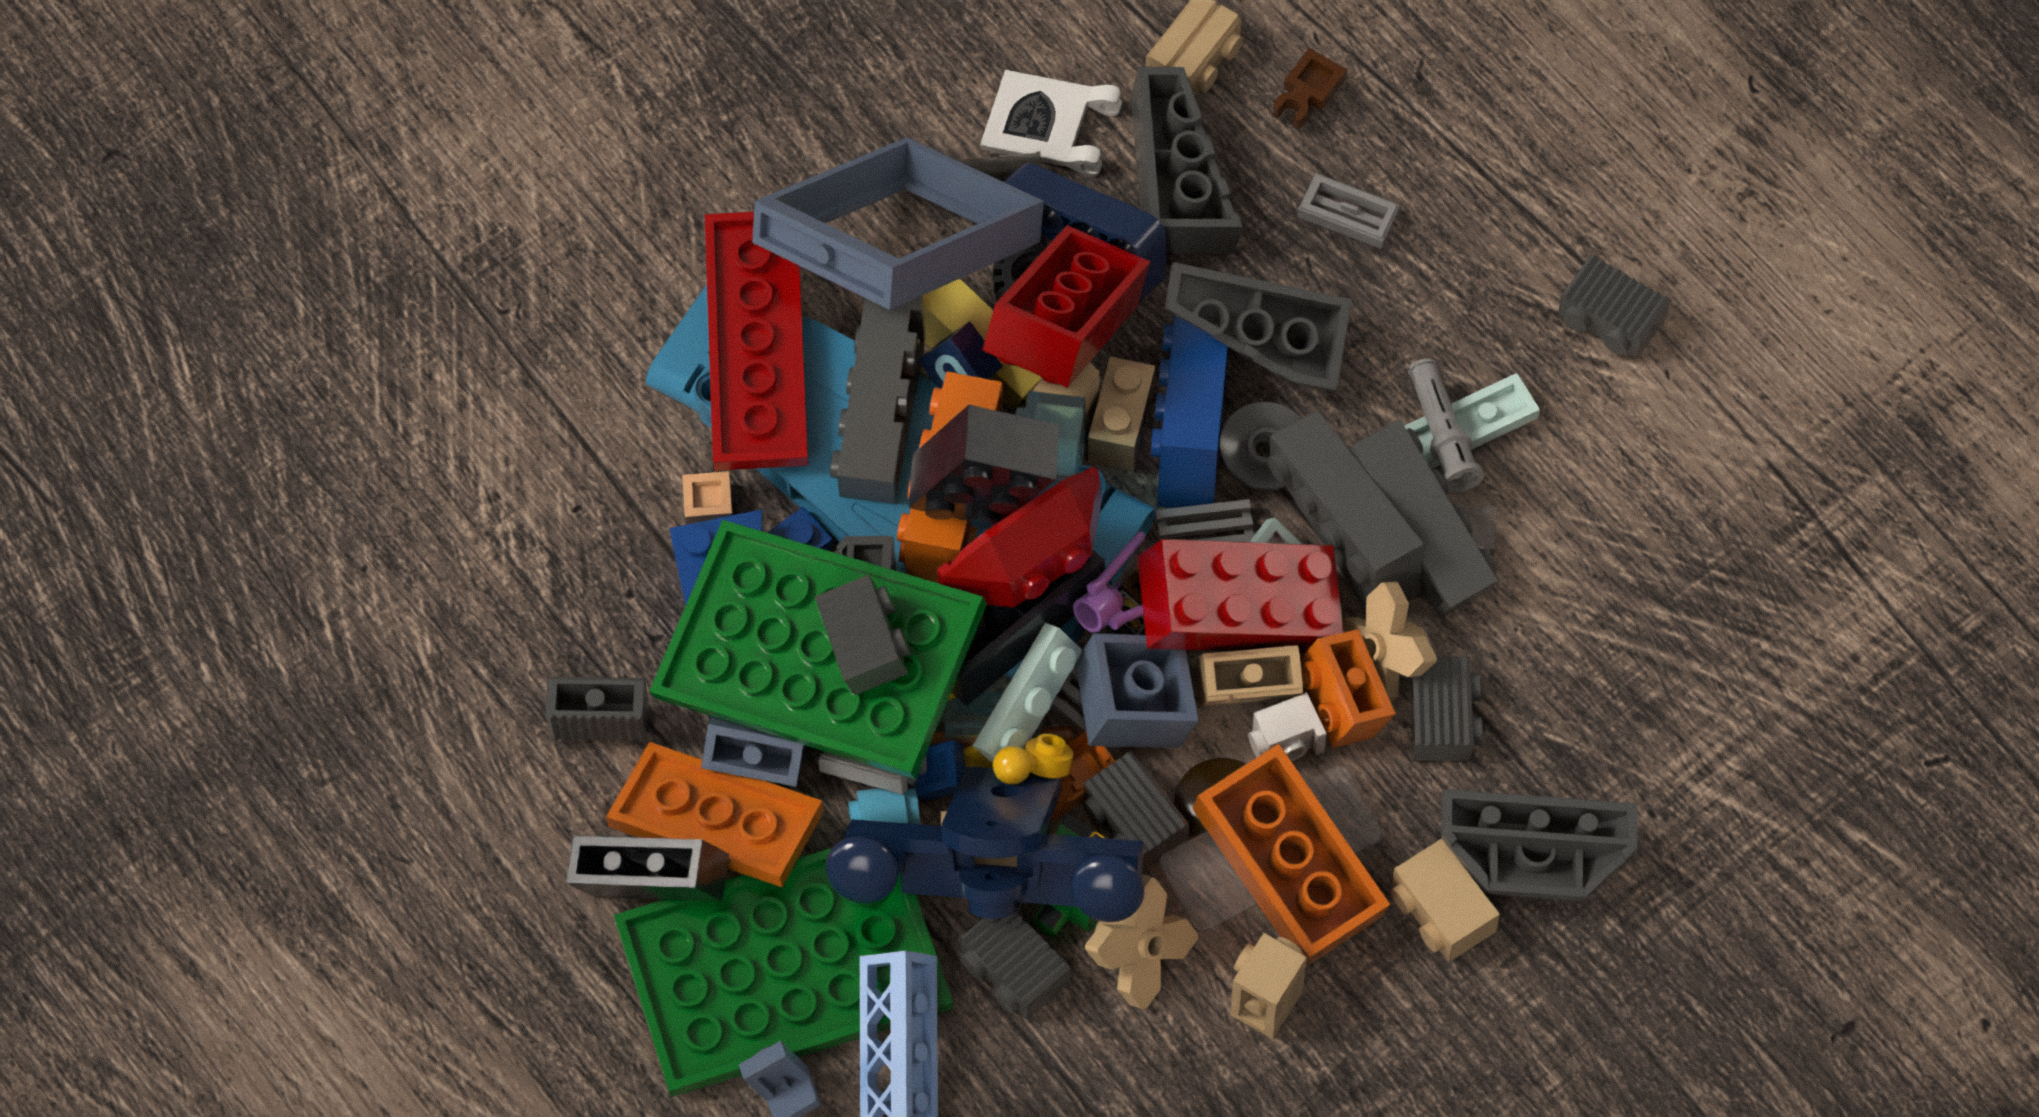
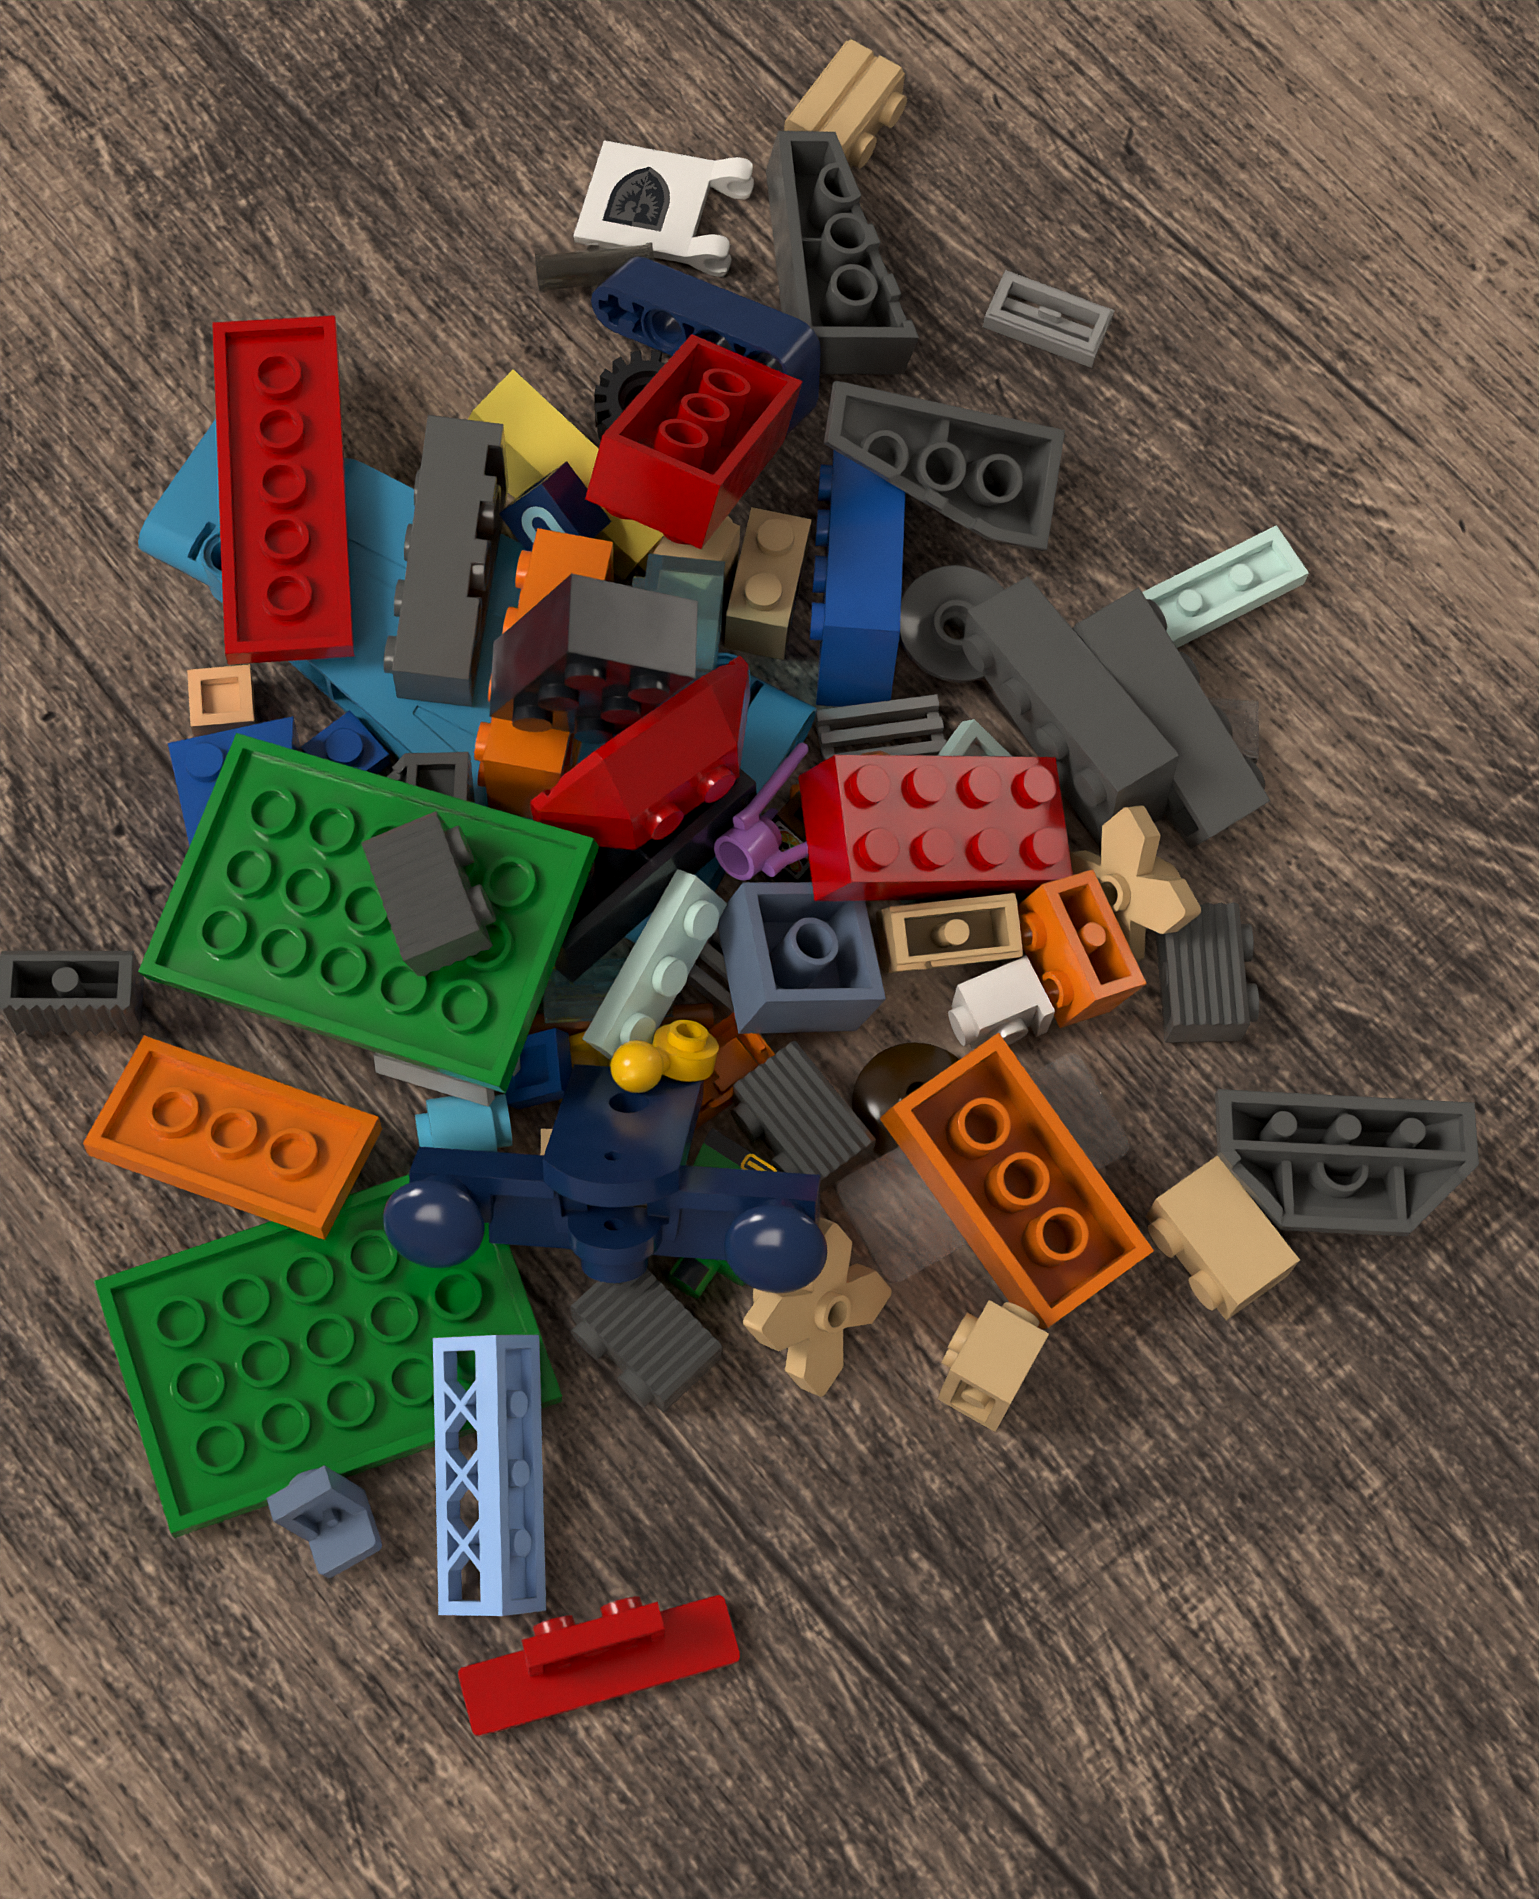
camera: 10 degrees left, 5 degrees up
(648, 868) = (138, 1218): black brick -> none
(752, 753) = (280, 1054): sand blue brick -> none
(796, 219) = (336, 328): sand blue window -> none
(1309, 83) = (993, 156): reddish brown plate -> none
(1449, 442) = (1198, 616): light grey pin -> none
(1613, 307) = (1393, 439): dark grey brick -> none

